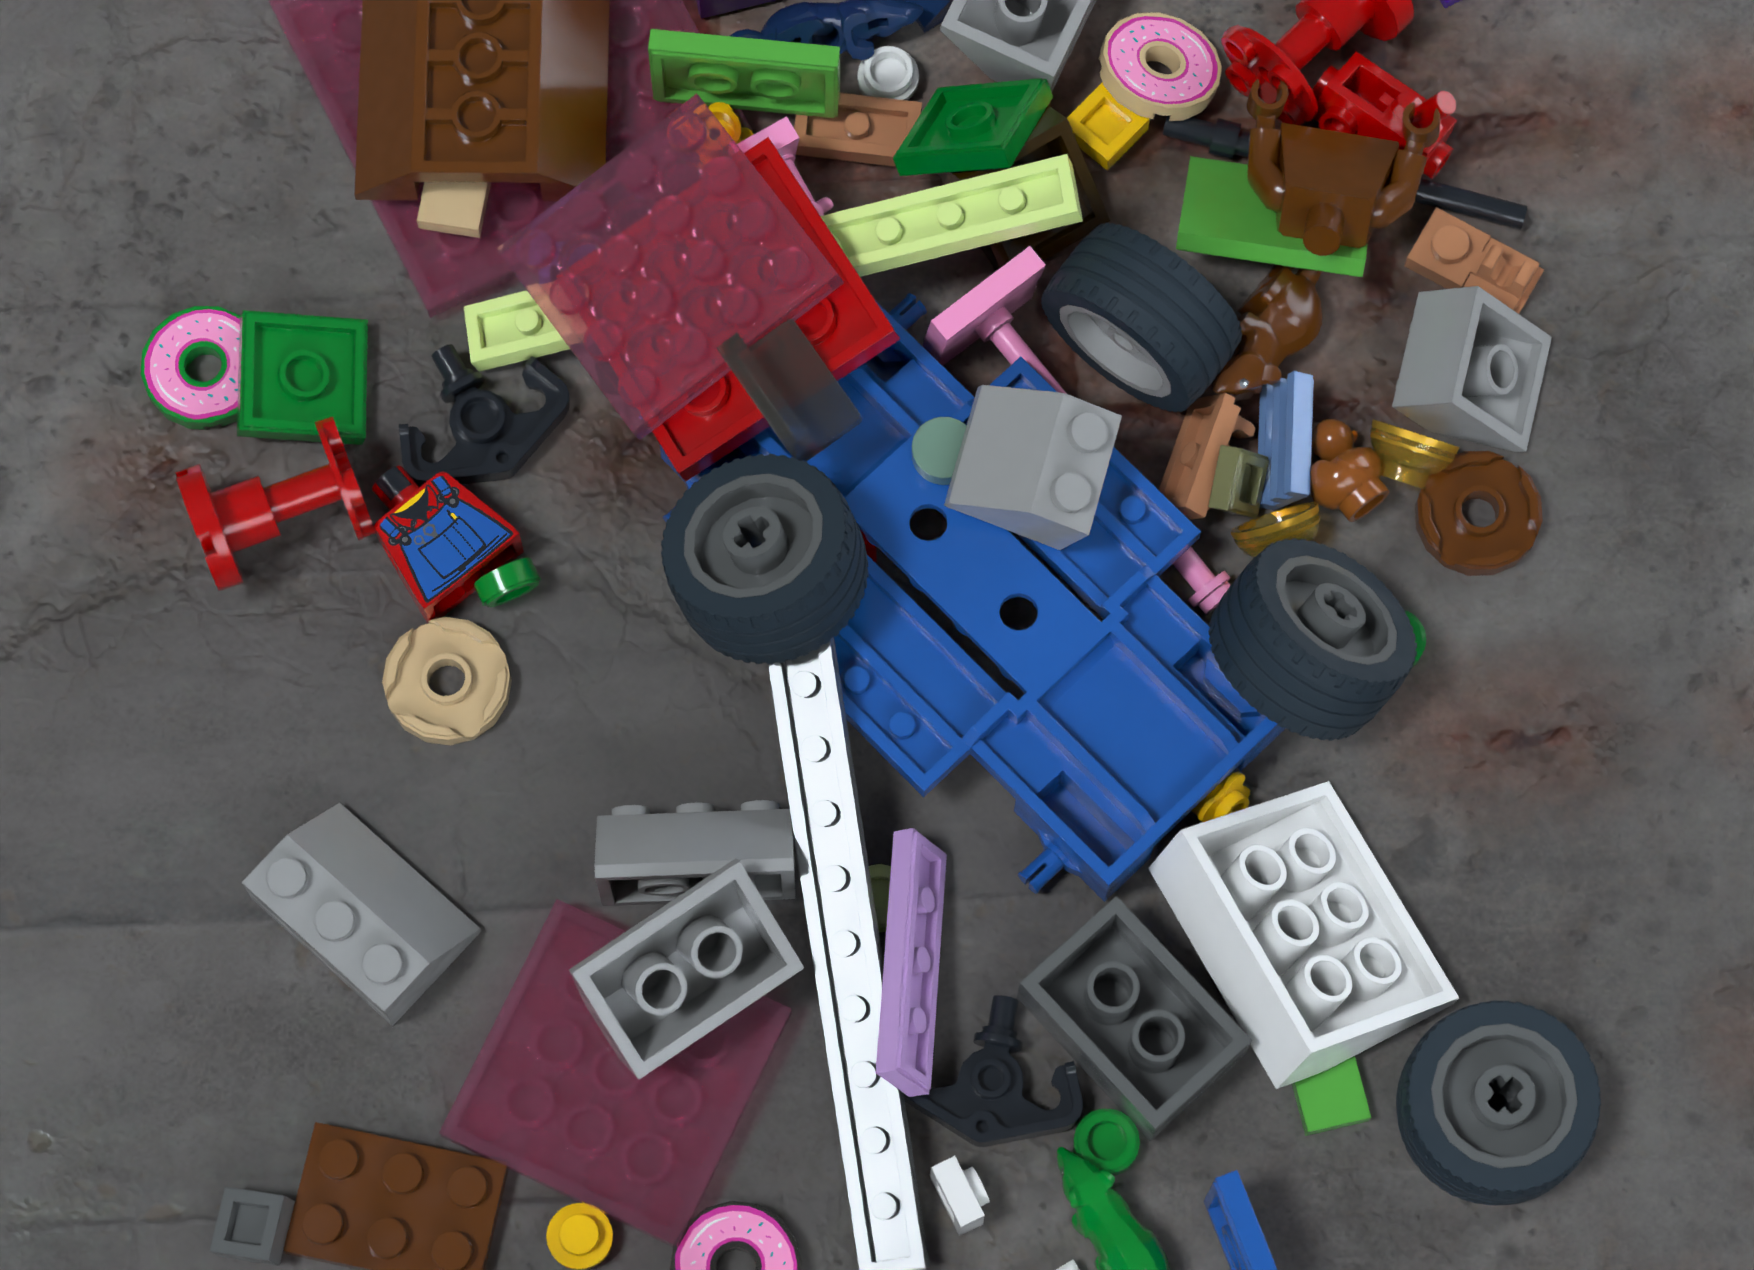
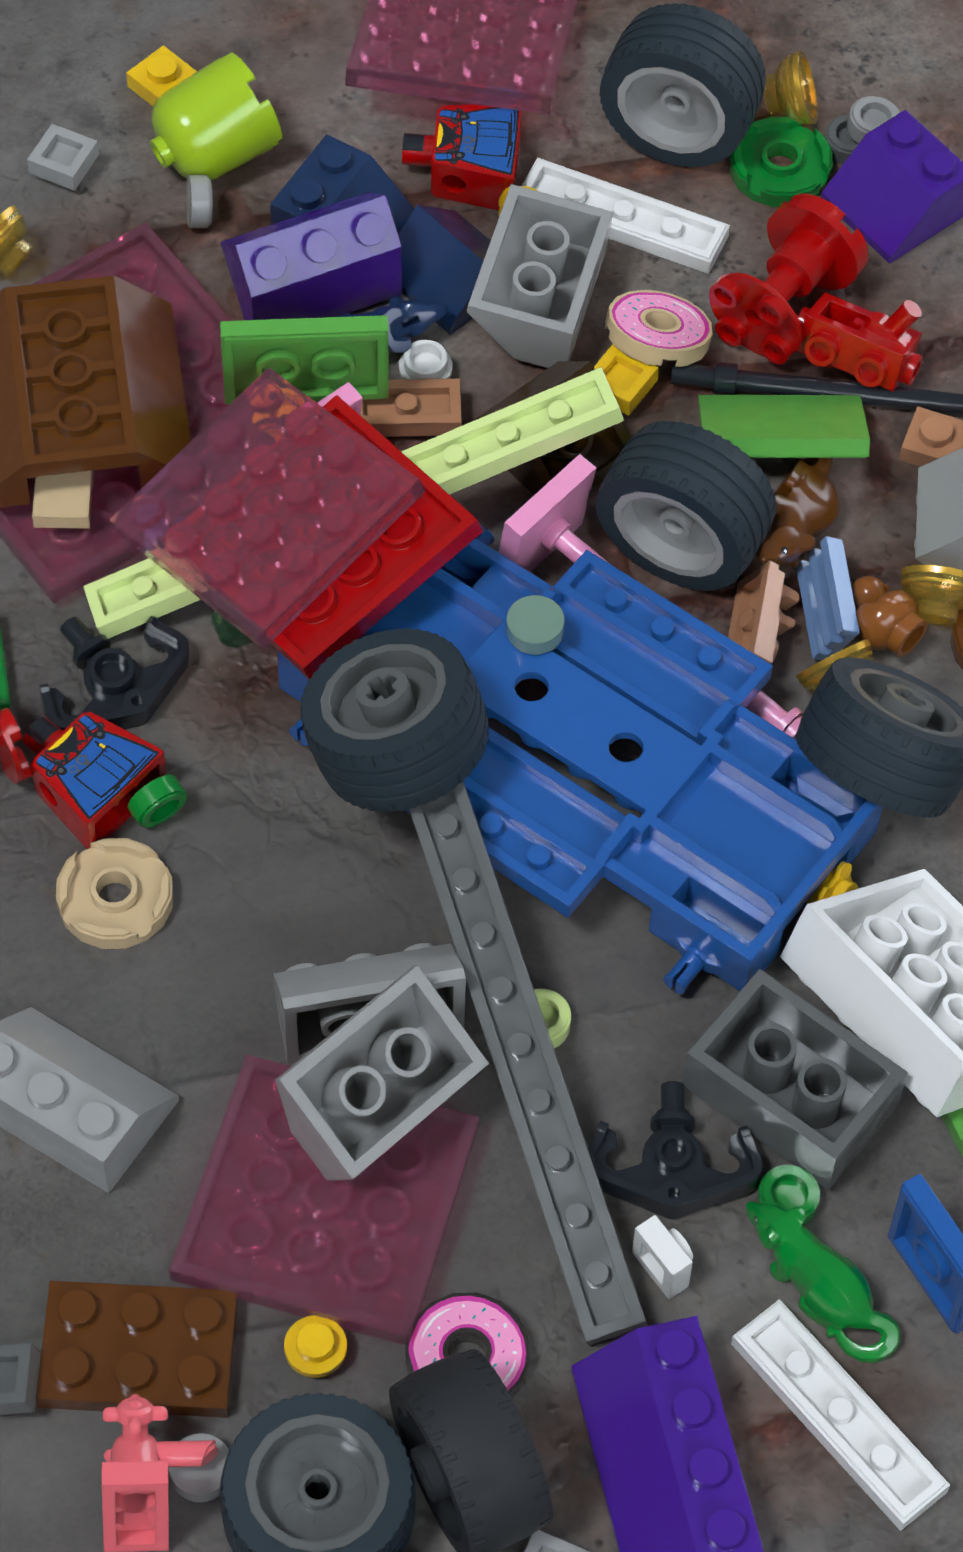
camera: 10 degrees left, 15 degrees down
(792, 389) = (393, 577): clear smoke panel -> none
(911, 963) = (583, 1059): lavender tile -> none
(973, 127) = (508, 382): green tile -> none
(1033, 463) = (618, 618): light grey slope -> none
(1238, 481) = (794, 633): olive tile -> none
(1329, 182) = (826, 386): reddish brown torso -> none

